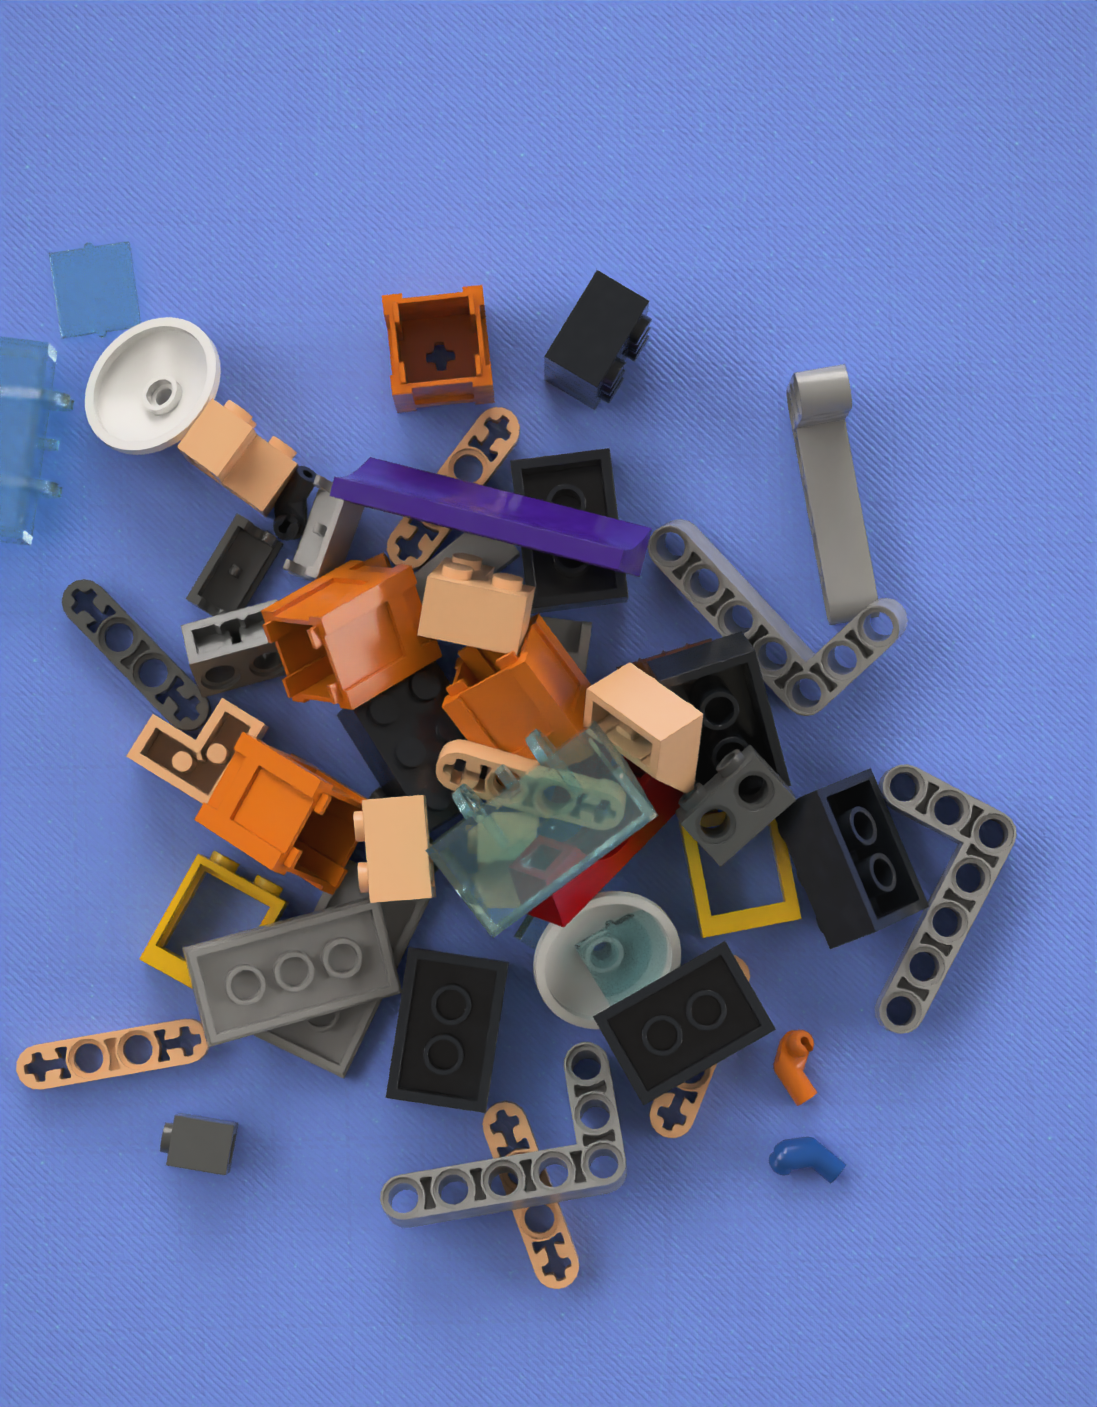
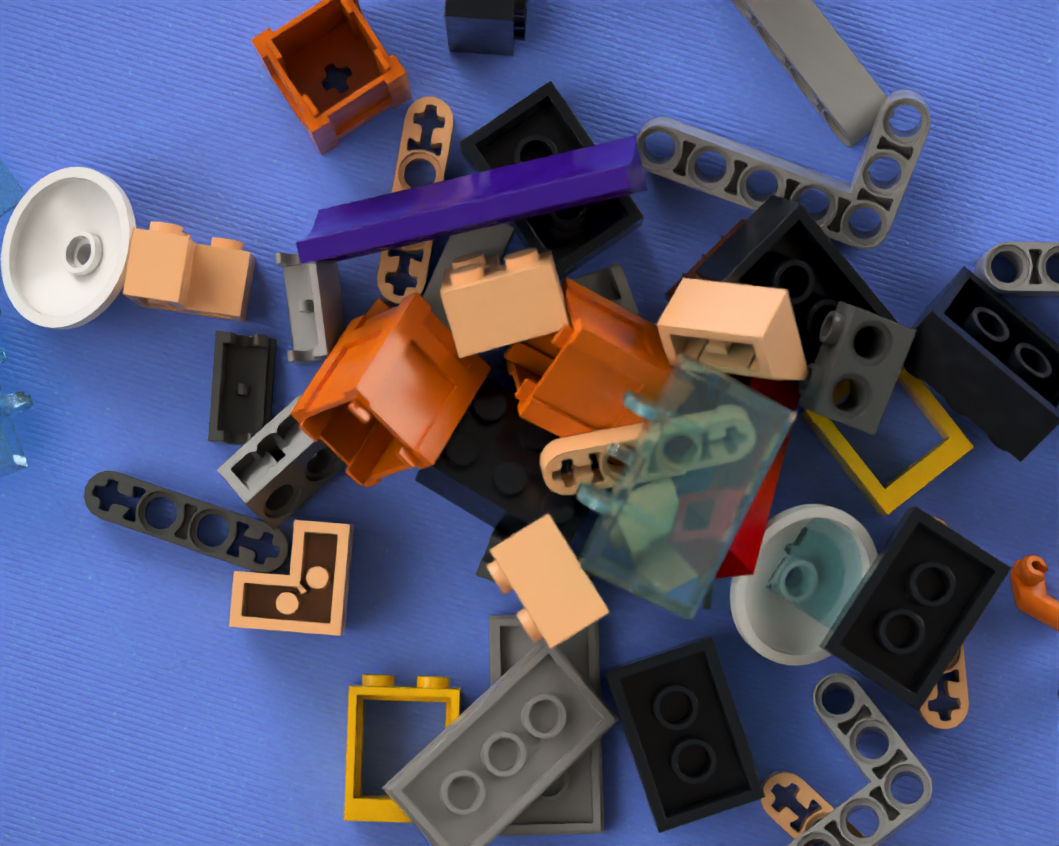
camera: 30 degrees left, 0 degrees up
(284, 813) = (416, 603): orange container -> none
(292, 505) = (265, 296): black arm -> none

